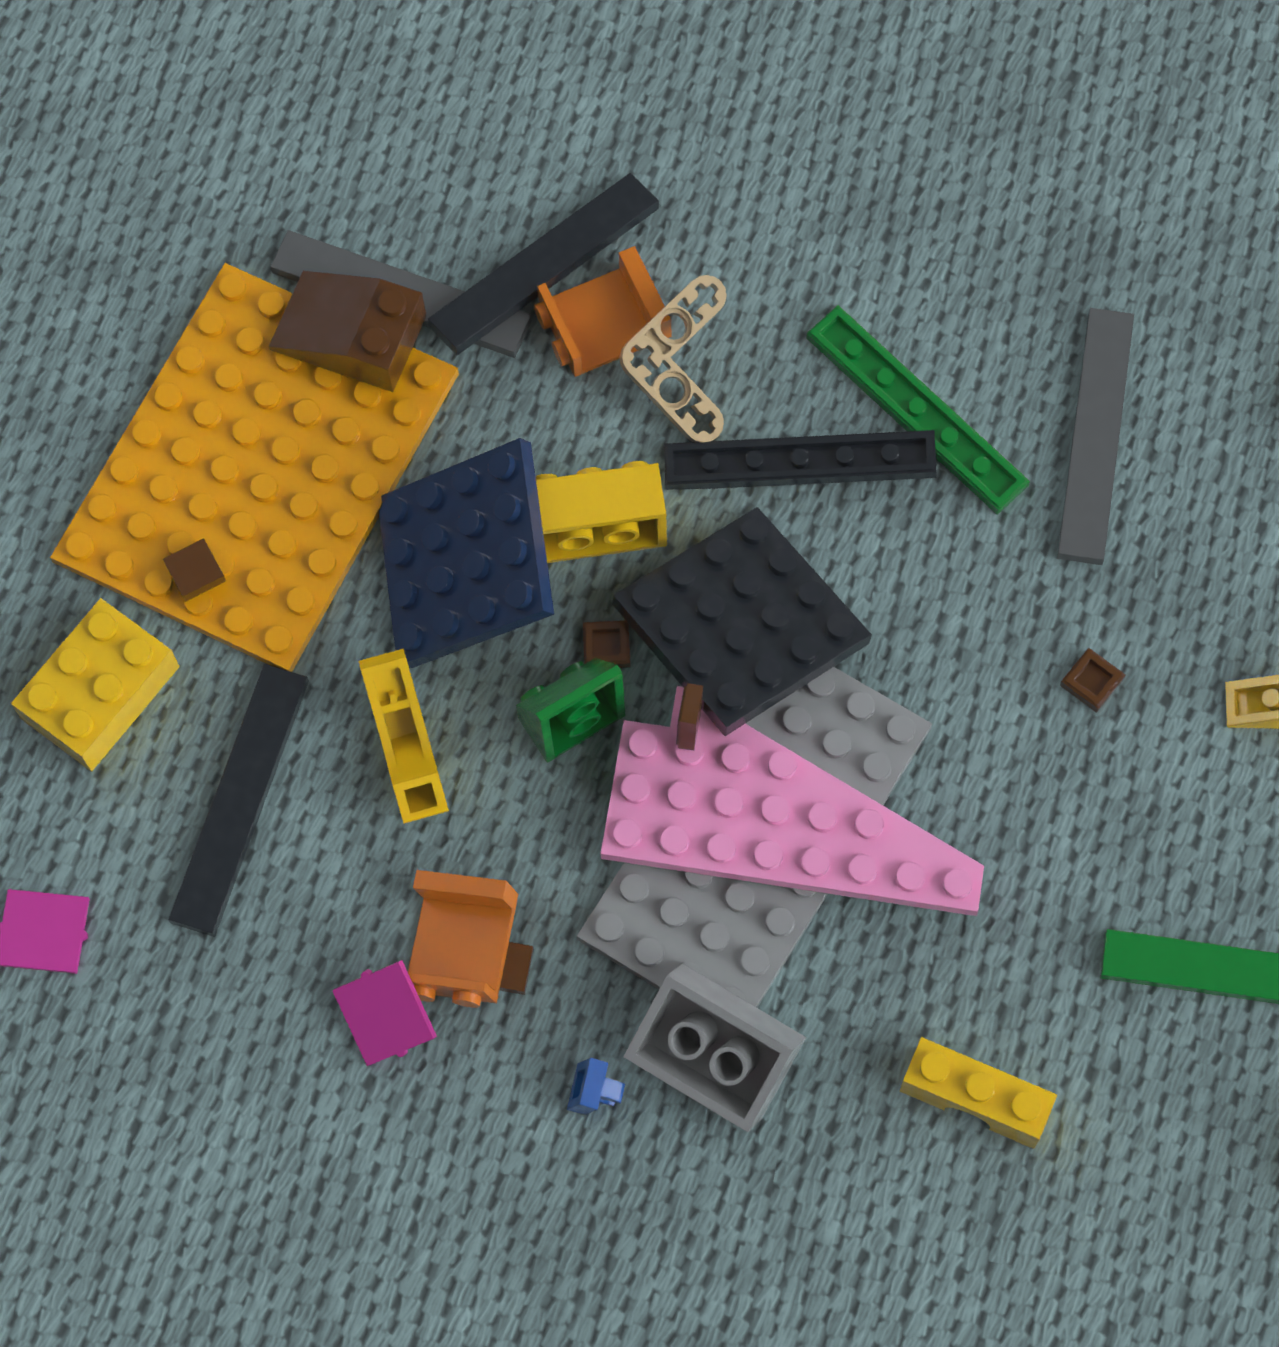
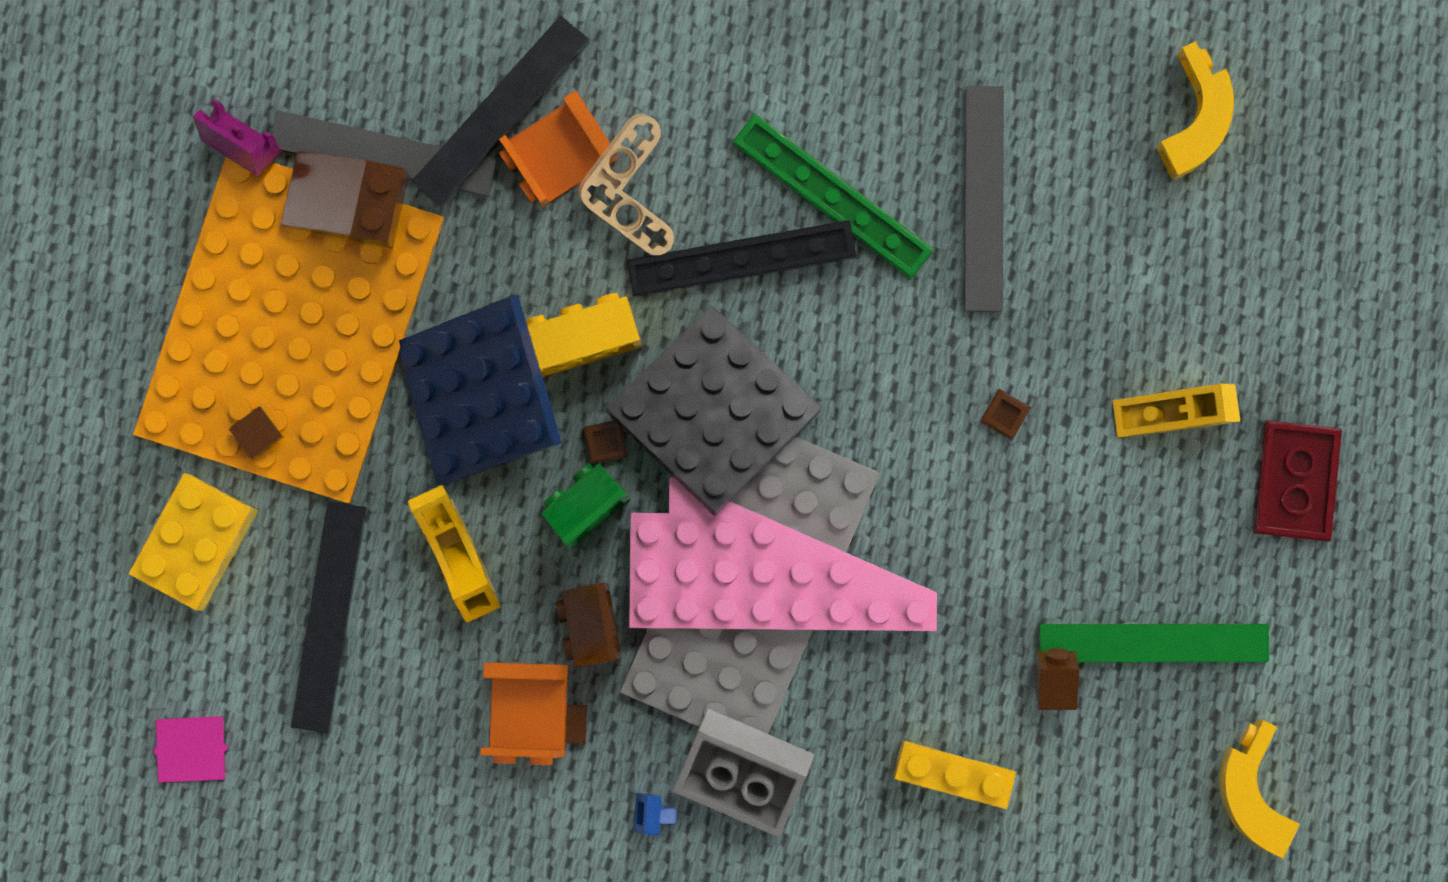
camera: 10 degrees left, 15 degrees up
(233, 250) = (236, 139): none -> magenta hinge
(384, 1013) = (477, 780): dark pink piece -> none
(553, 842) = (590, 625): none -> reddish brown slope
(689, 716) = (684, 508): reddish brown tile -> none
(1121, 994) = (1057, 679): none -> reddish brown brick

